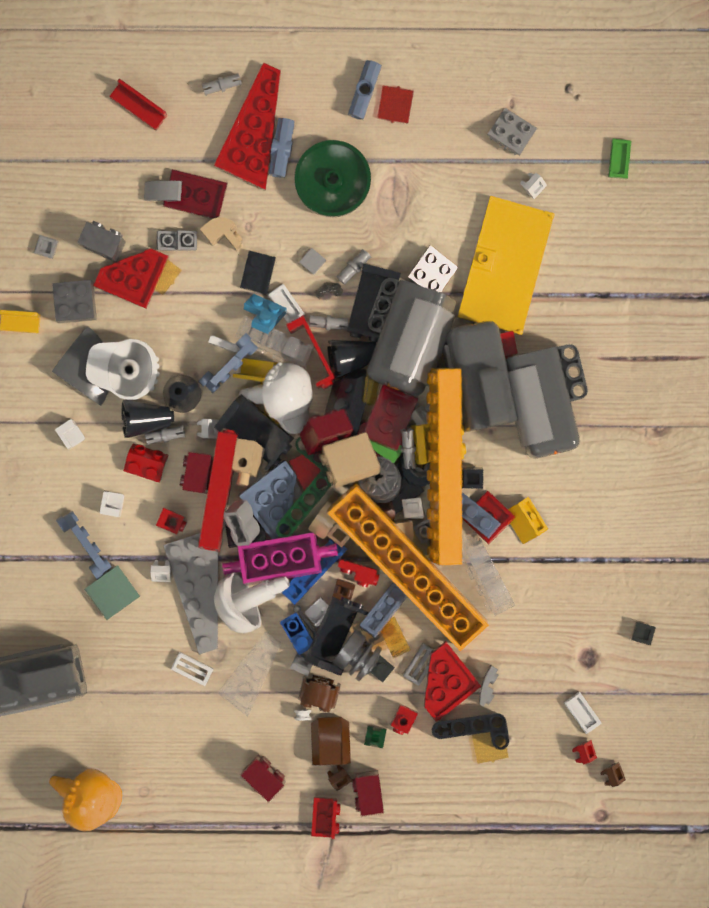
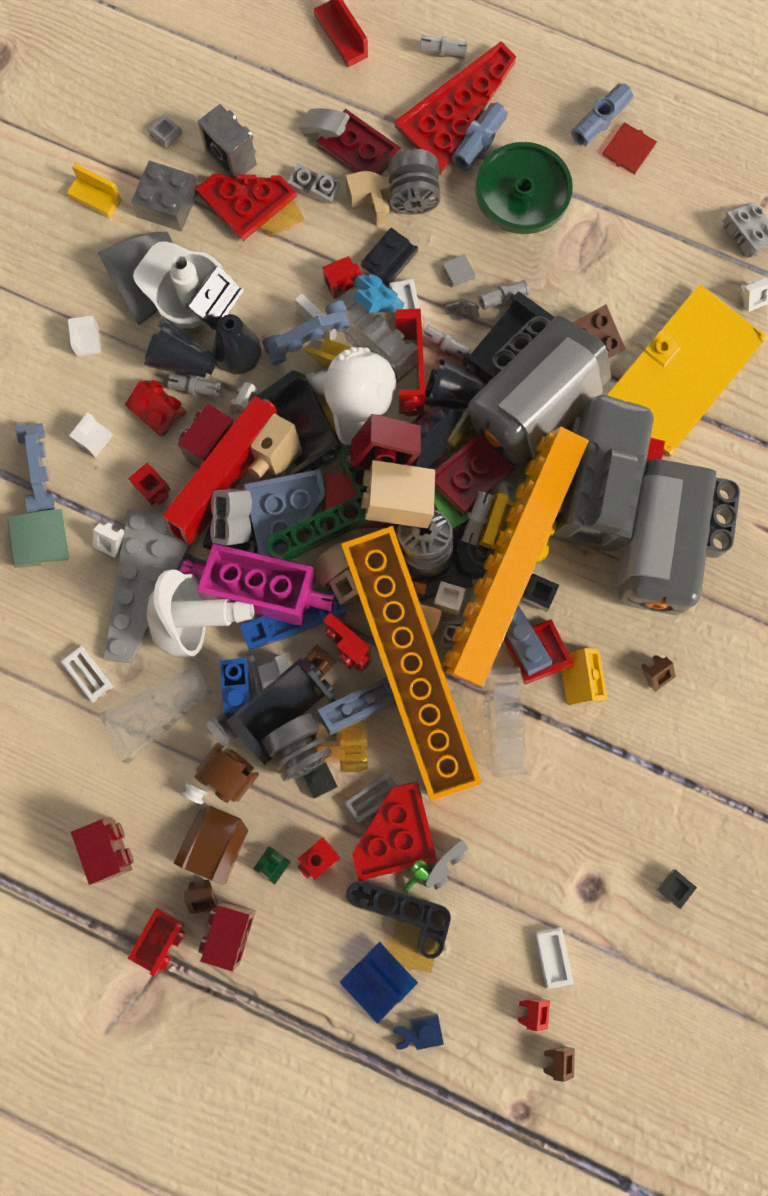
camera: 20 degrees right, 10 degrees down
(155, 371) = (214, 297): none -> plate
(231, 305) = (341, 275): none -> red brick
(253, 215) = (414, 182): none -> flat silver wheel
(473, 699) = (419, 871): none -> bright green hand
(477, 778) = (378, 982): none -> clear blue slope
(519, 795) = (424, 1032): none -> dark blue plate
(575, 496) = (660, 673): none -> reddish brown tile

